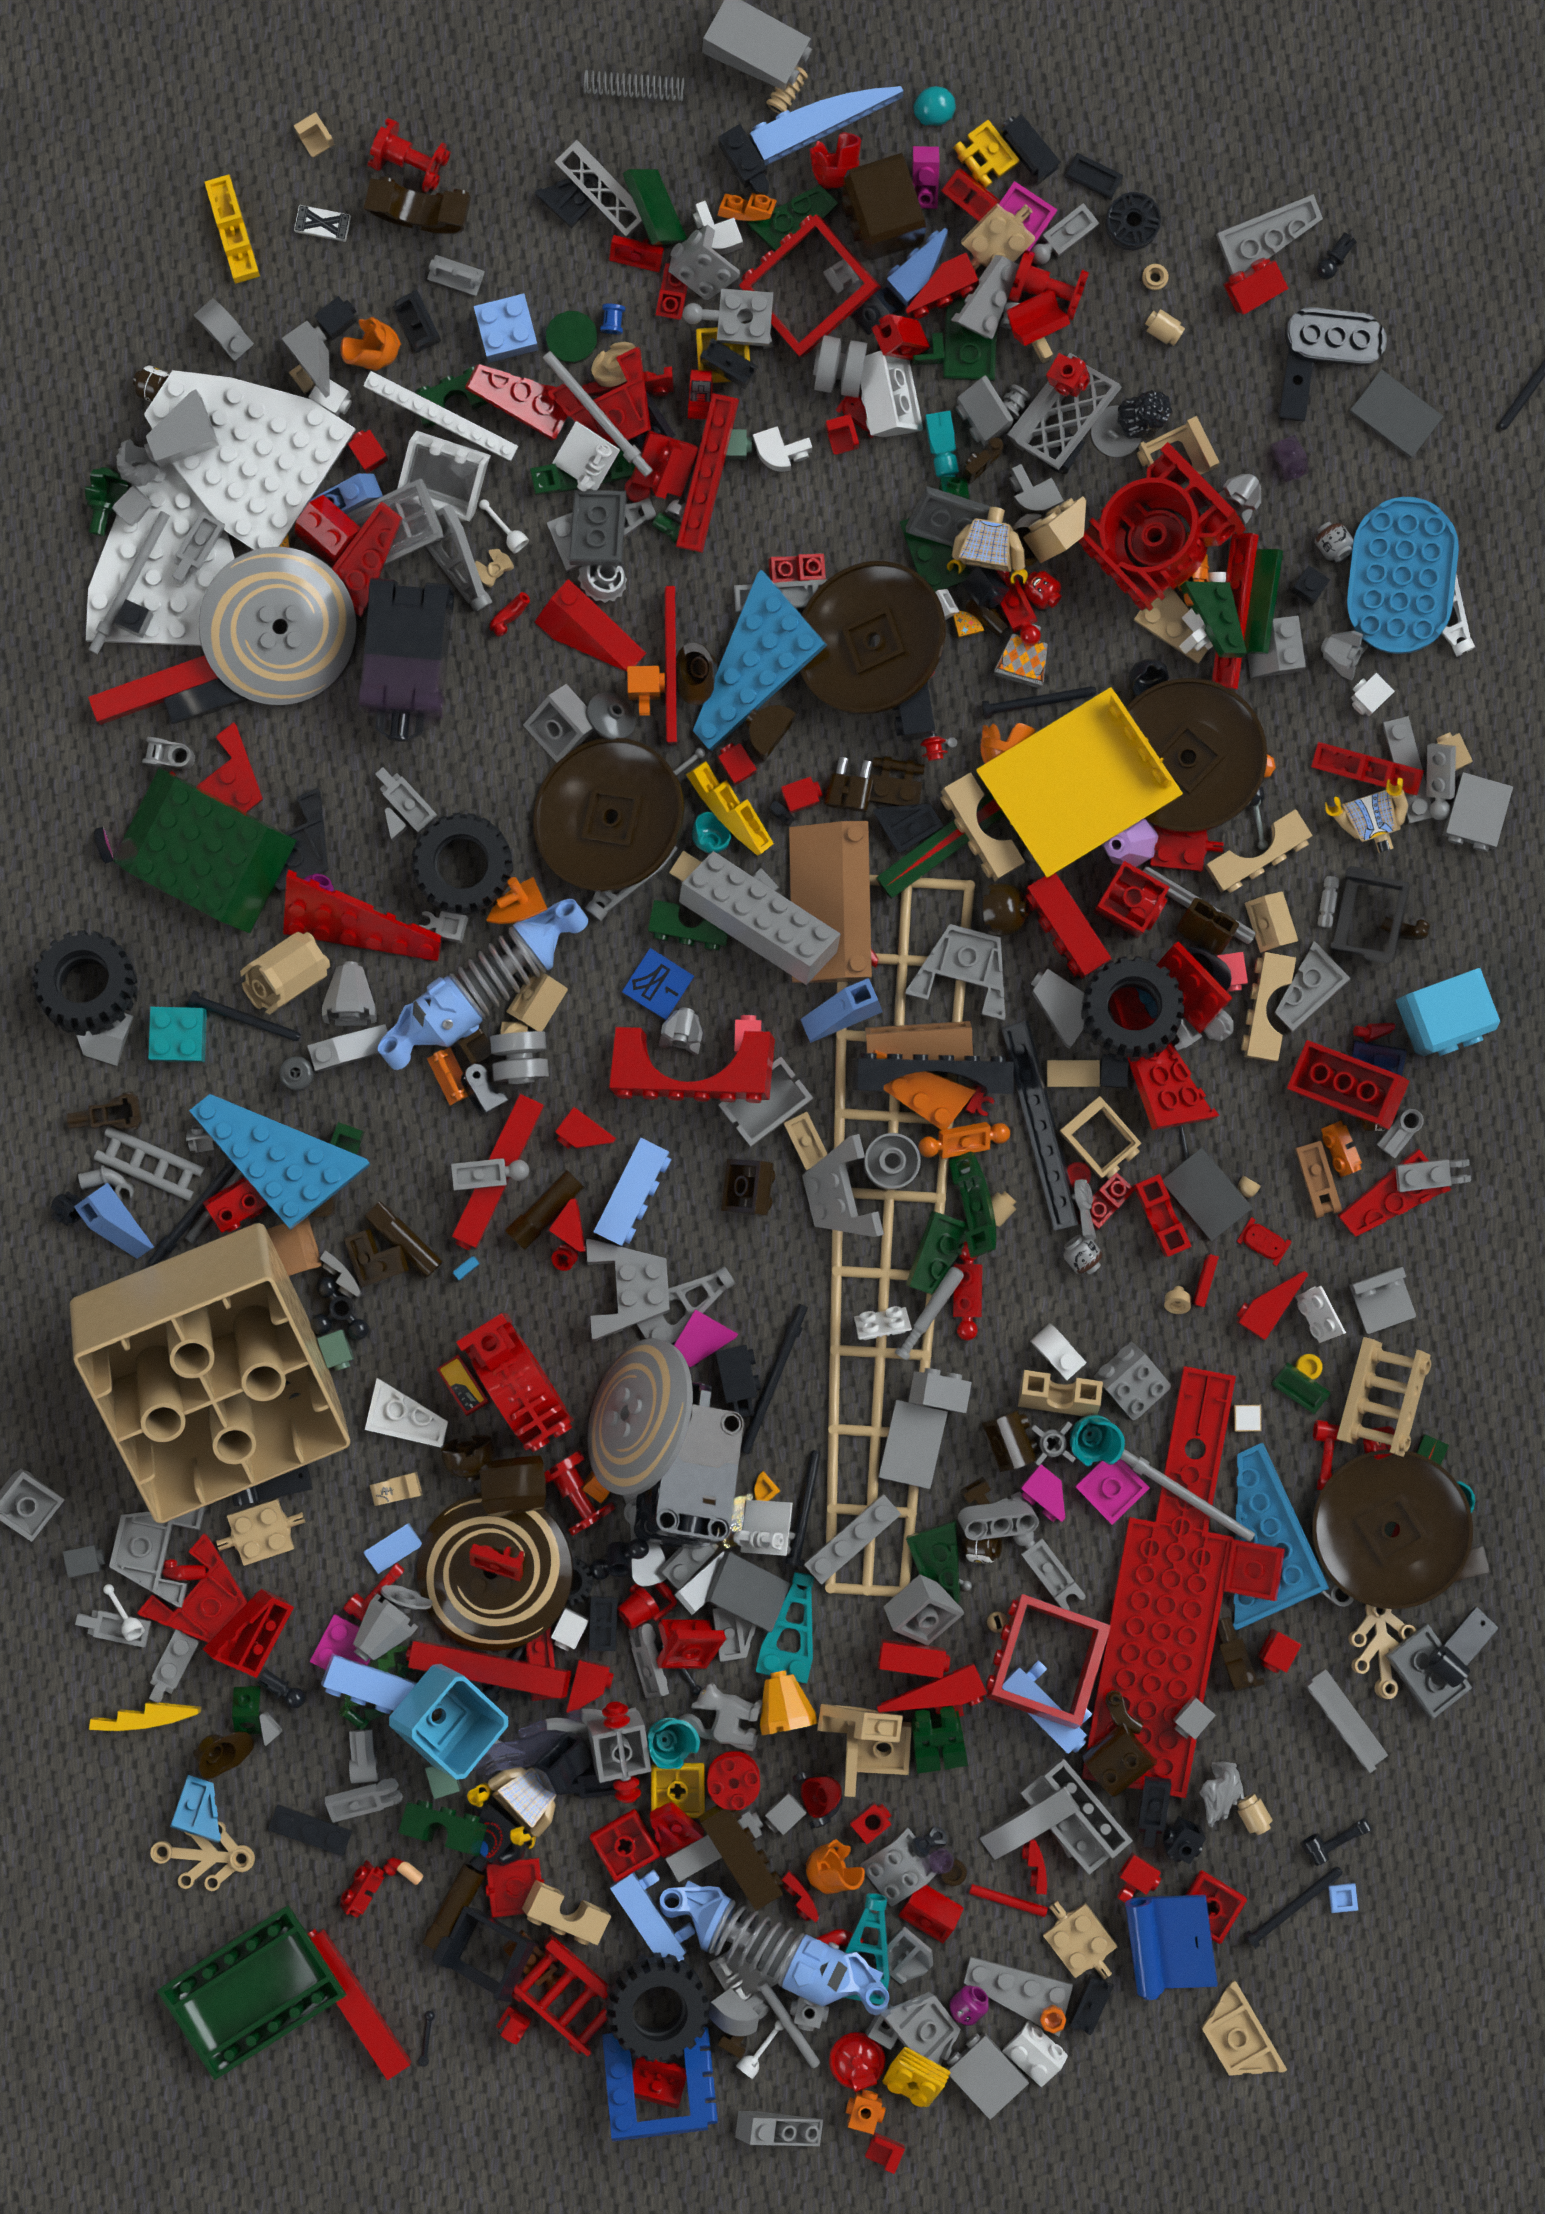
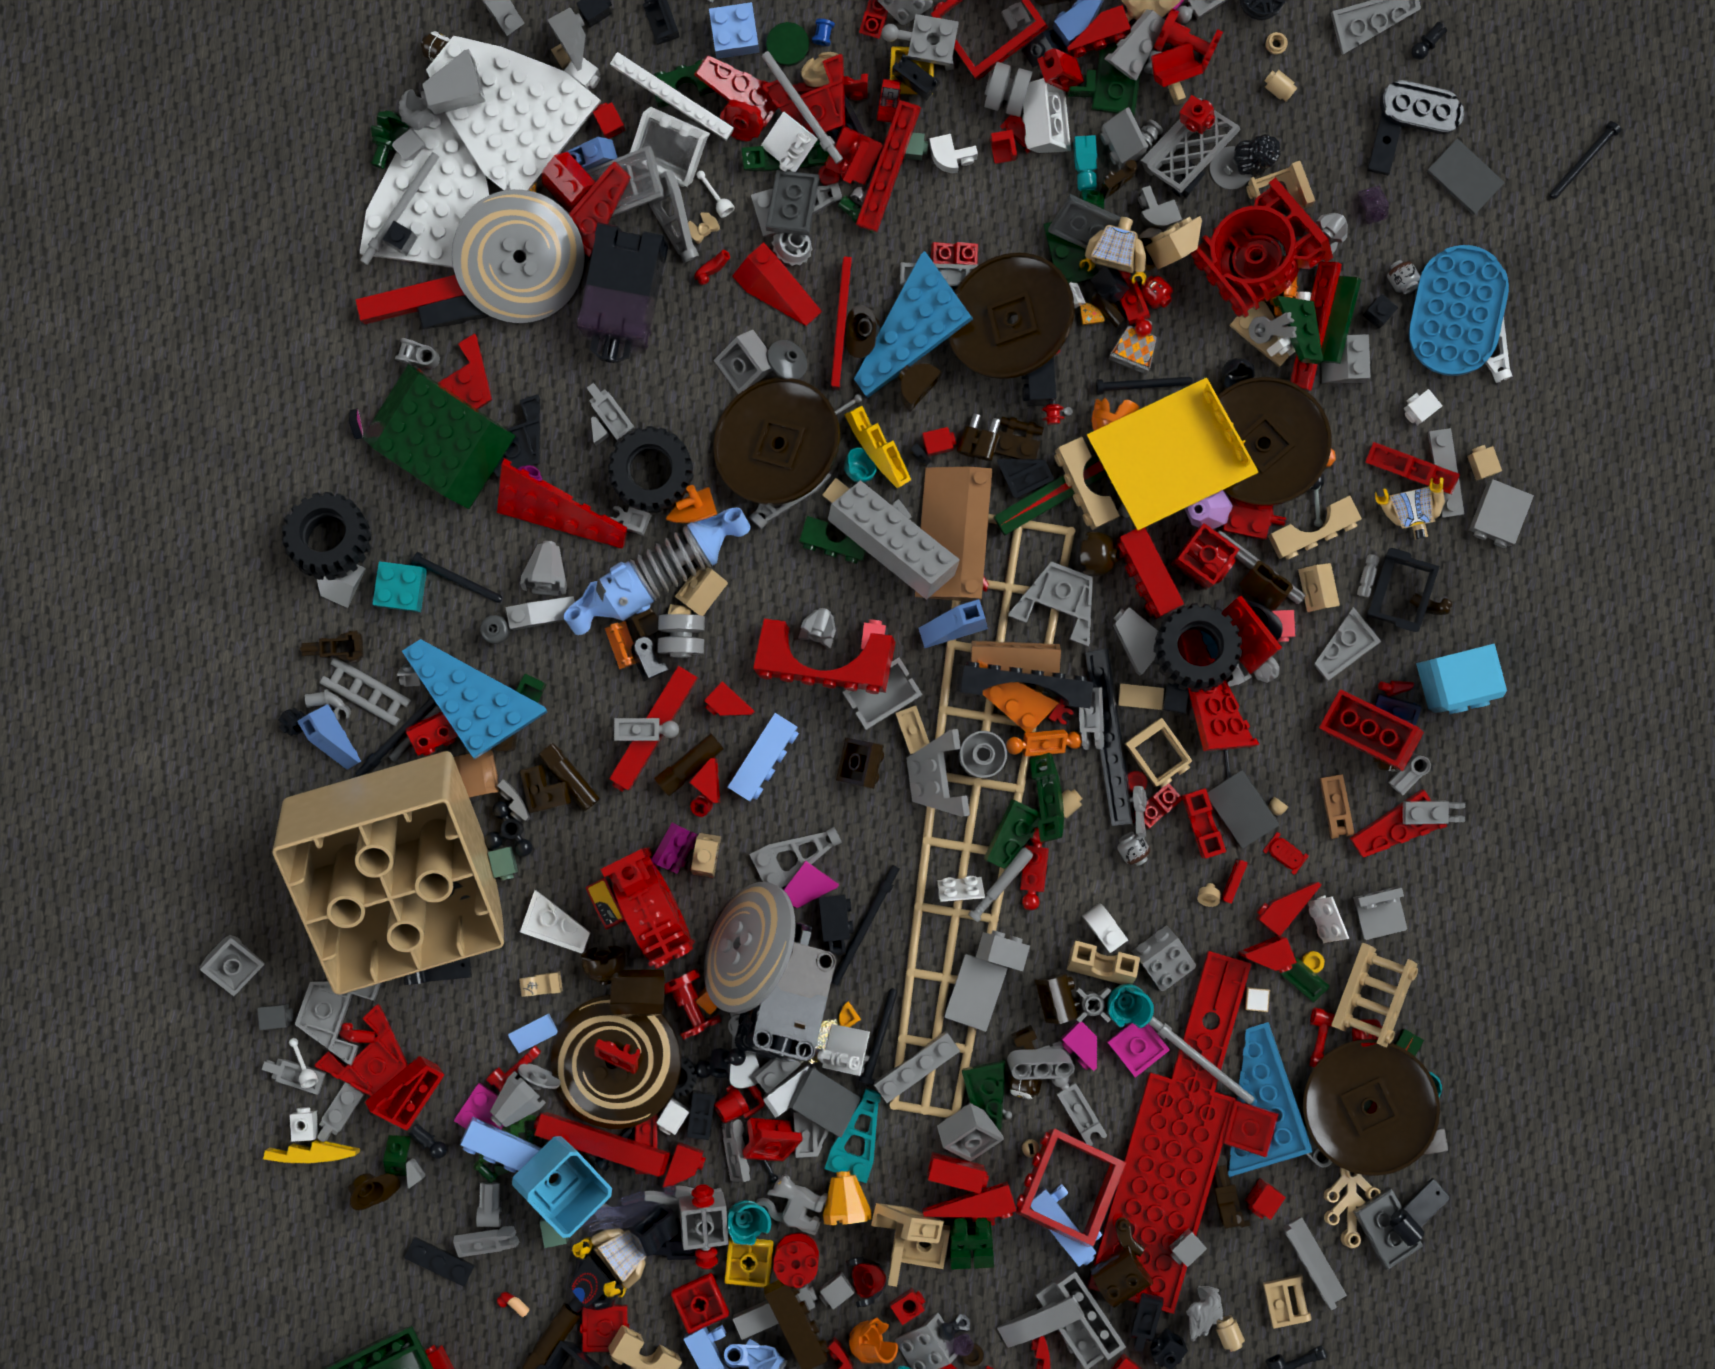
camera: 15 degrees right, 0 degrees up
(132, 1684) = (303, 1125): none -> white brick
(197, 546) = (459, 184): light grey hinge -> none
(197, 1810) = (346, 1235): dark azure wing -> none
(208, 1857) = (351, 1273): tan plant -> none
(260, 1531) = (424, 1007): tan plate -> none
(284, 972) = (493, 544): tan brick -> none
(365, 1878) = (481, 1307): red hinge -> none
(375, 349) = (626, 35): orange helmet -> none
(462, 1833) = (565, 1279): dark green arch -> none
(467, 1267) = (618, 806): dark azure tile -> none
(519, 426) = (749, 114): none -> red plate
(533, 1309) = (670, 846): none -> magenta plate
(576, 1315) = (705, 855): none -> tan torso
(640, 1287) = (761, 836): light grey wing -> none
(645, 684) = (818, 336): orange brick -> none
(658, 984) = (803, 586): blue tile -> none
(674, 1828) = (742, 1294): red wing -> none
(736, 763) = (887, 409): red brick -> none
(1018, 1108) = (1092, 721): none -> light grey hinge
(1172, 621) = (1262, 328): none -> light grey piece
(1255, 285) = (1359, 58): red brick -> none
(1257, 1362) = (1272, 953): none -> red slope
(1263, 1040) = (1302, 685): tan arch -> none
(1310, 1773) = (1280, 1304): none -> tan plate
(1344, 652) = (1402, 369): light grey brick -> none
(1344, 1160) = (1354, 773): orange hinge -> none
(1440, 778) = (1473, 482): light grey plate -> none

